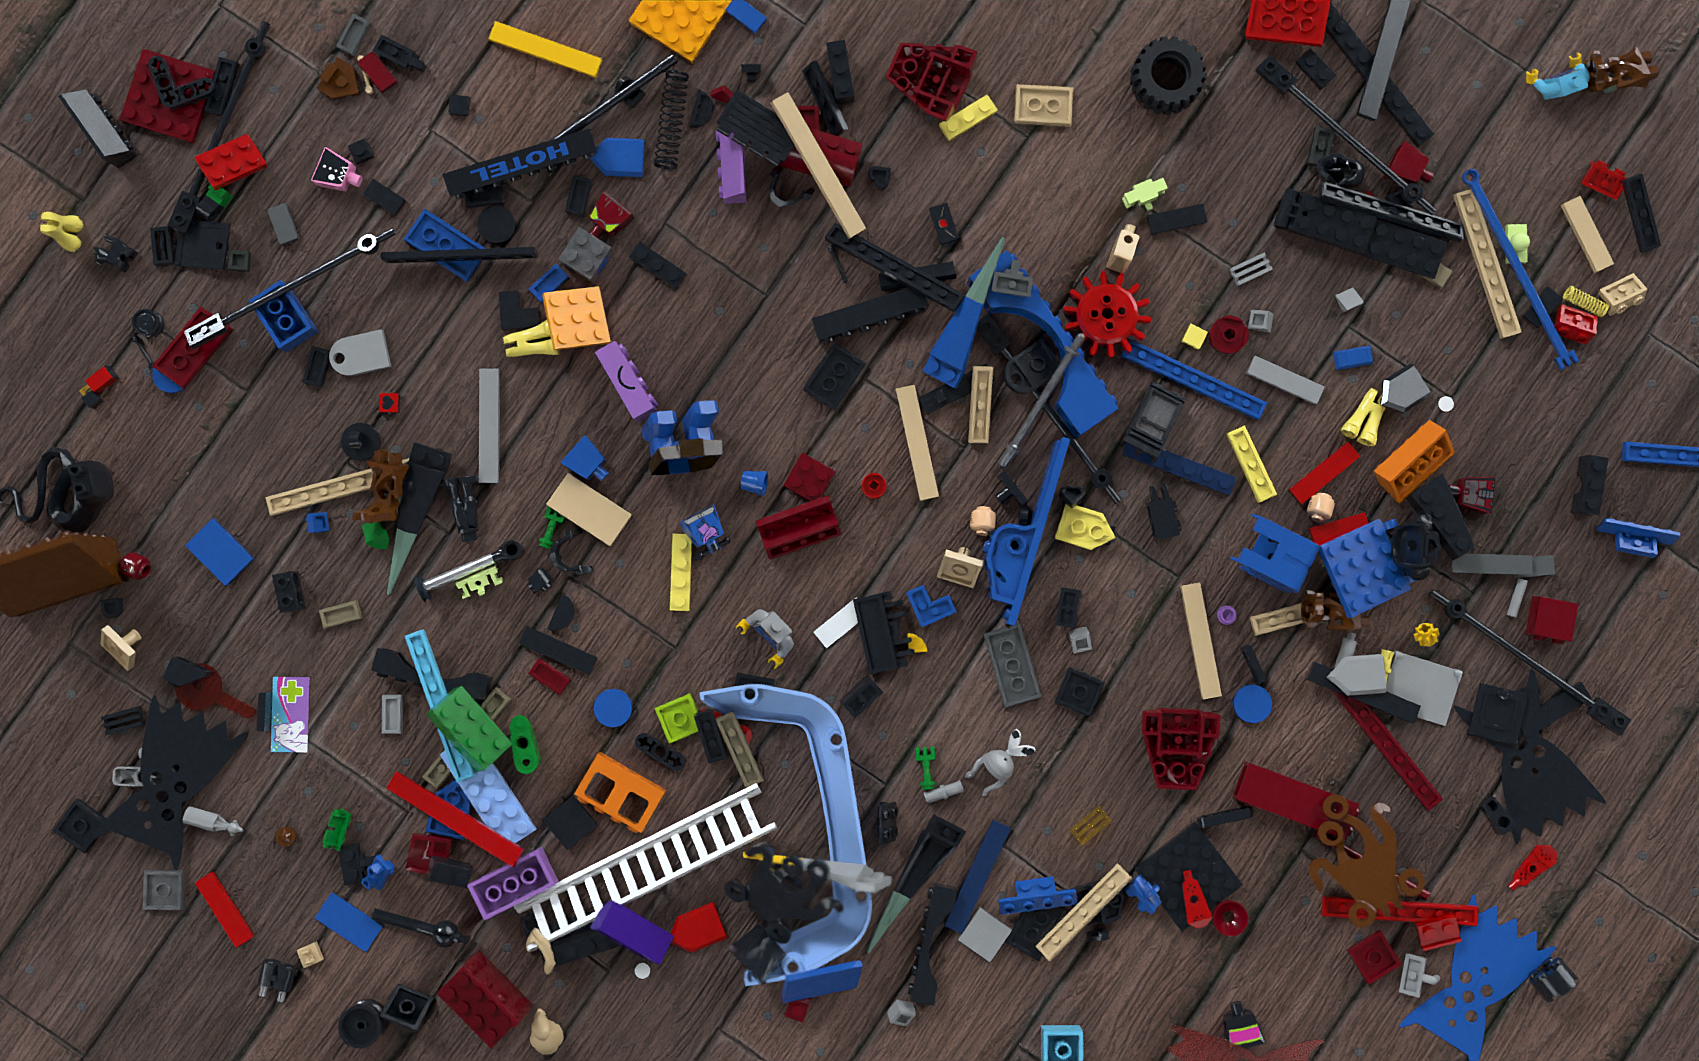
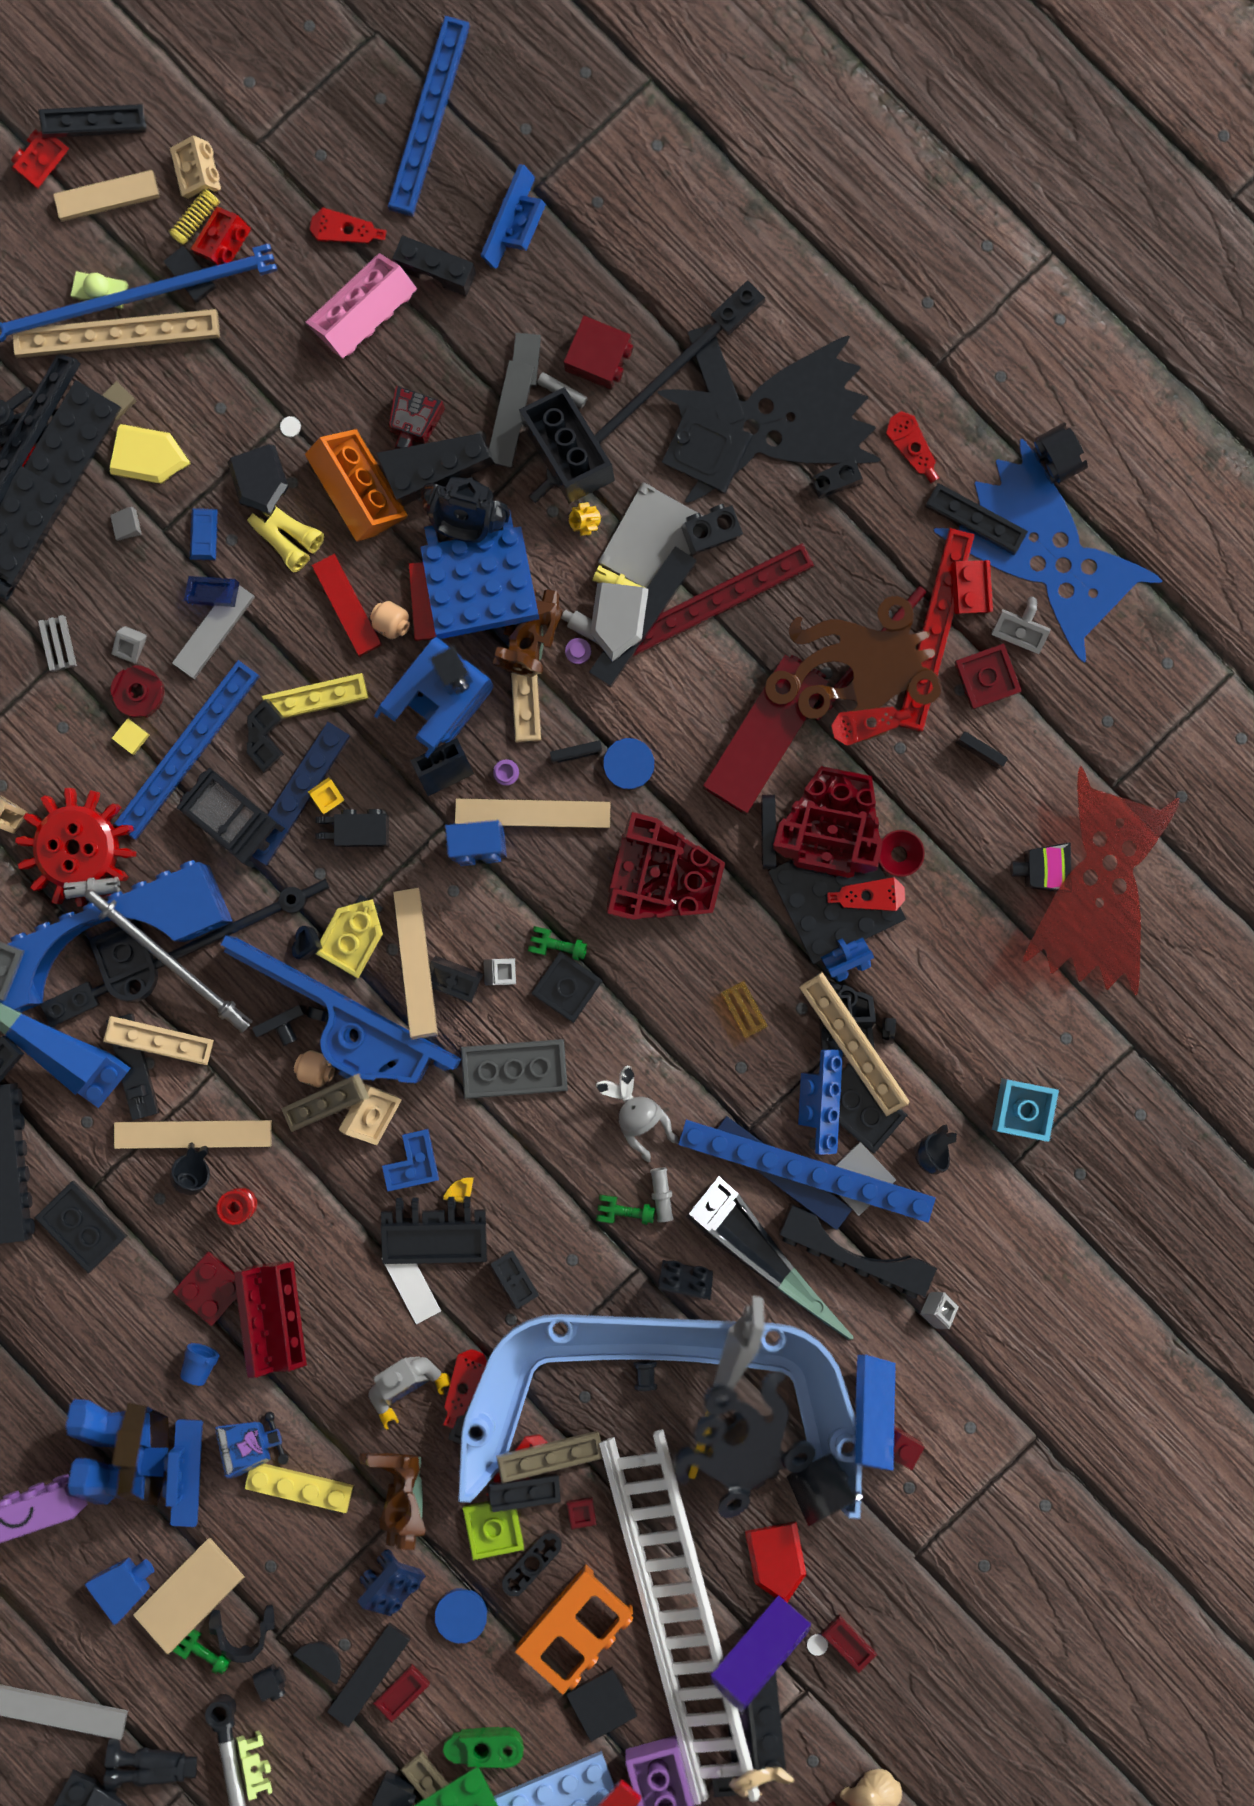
camera: 75 degrees left, 0 degrees up
(625, 654) = (392, 1587): none -> dark blue plate
(648, 993) = (849, 1643): none -> dark red tile
(675, 488) = (183, 1473): none -> blue bracket
(682, 650) = (404, 1498): none -> reddish brown hips
(703, 780) = (581, 1513): none -> dark red tile
(784, 679) = (465, 1375): none -> red piece
(811, 806) = (645, 1375): none -> black bush
(891, 447) = (190, 1171): none -> black piece
(962, 535) = (325, 1102): none -> dark tan tile
(983, 895) = (807, 1171): none -> blue plate
(1016, 985) = (933, 1151): none -> black piece
(1076, 579) = (415, 964): none -> tan tile
(1079, 327) = (100, 886): none -> light grey pin
(1109, 669) = (578, 949): none -> green hinge
(1174, 606) = (476, 842): none -> blue brick
(1182, 487) = (326, 796): none -> yellow plate
(1208, 431) = (259, 745): none -> black tile
(1221, 569) = (443, 767): none -> black brick
(1241, 865) = (833, 825): none -> dark red wedge
(1301, 566) = (451, 670): none -> black brick
(1313, 373) = (211, 591): none -> clear blue tile
(1318, 963) = (981, 750): none -> black tile
(1319, 871) = (858, 725): none -> red piece
(1327, 649) = (578, 651): none -> medium lavender plate
(1402, 304) = (146, 455): none -> light yellow tile
(1436, 732) = (713, 534): none -> black brick
(1480, 611) = (567, 445): none -> black brick
(1489, 925) = (976, 519): none -> black tile
(1548, 438) = (362, 305): none -> bright pink slope
(1598, 405) = (335, 226): none -> red piece

